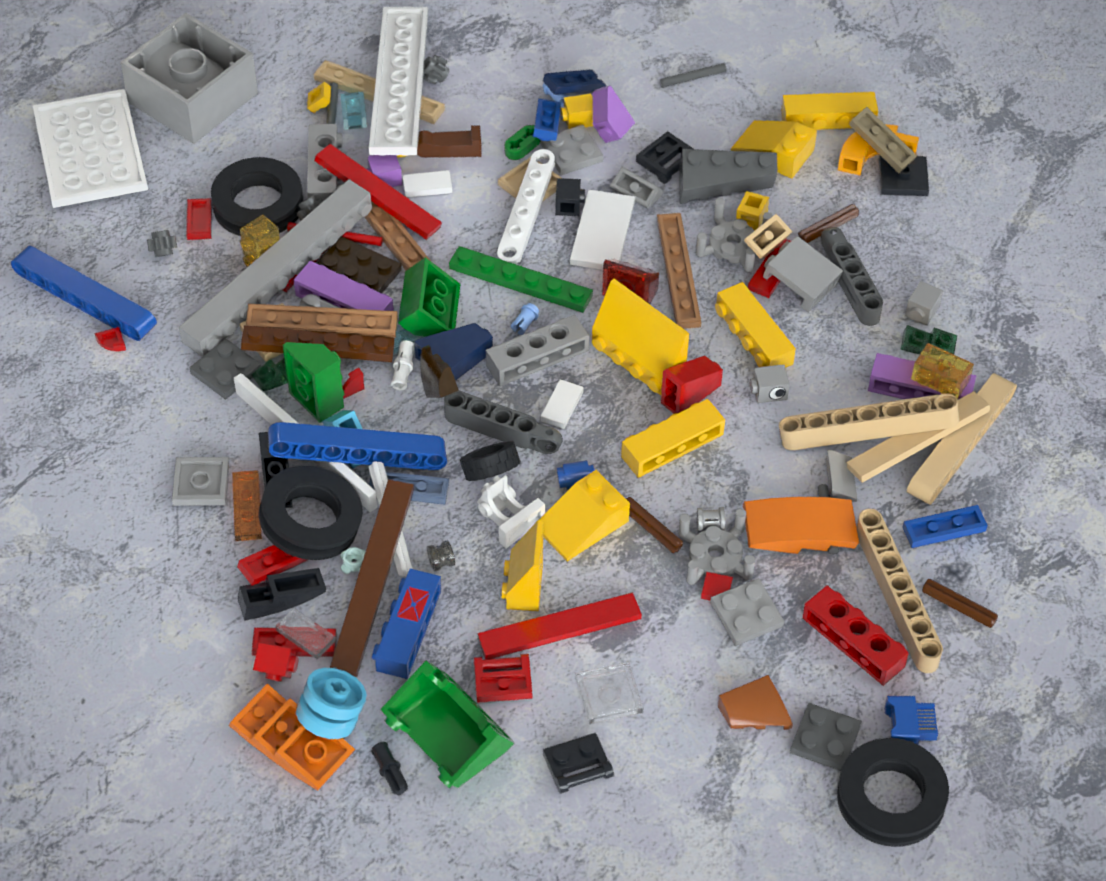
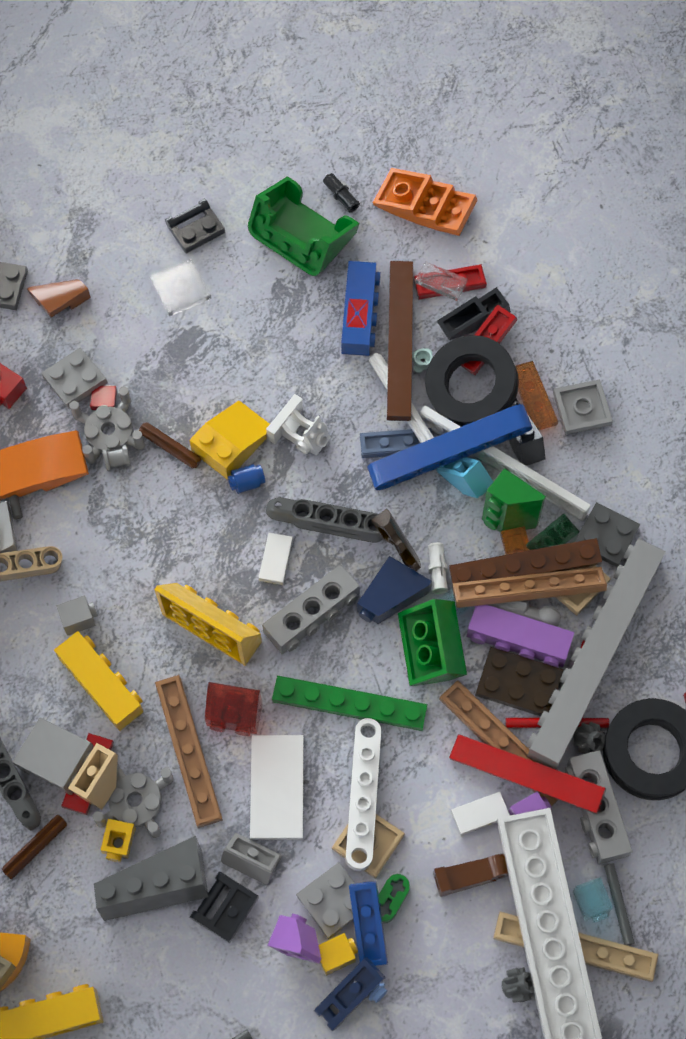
camera: 170 degrees right, 15 degrees up
(257, 238) = (623, 668): clear yellow brick -> none
(275, 661) = (457, 251): red brick -> none
(319, 97) = (638, 912): yellow plate -> none
(331, 703) = (386, 210): medium azure wheel -> none
(354, 383) = (479, 536): red tile -> none
(441, 555) = (348, 374): clear smoke wheel -> none
(490, 461) = (343, 465): black tyre -> none
(503, 684) = (269, 273): red plate -> none
(525, 571) = (269, 358): yellow slope -> none
(528, 314) = (332, 649): light blue pin -> none
(559, 626) = (232, 336): red tile -> none
(569, 197) = (321, 819): black brick -> none
(672, 438) = (163, 534): yellow brick -> none
(689, 383) = (143, 604): red slope -> none
(788, 139) = (104, 952): yellow slope -> none

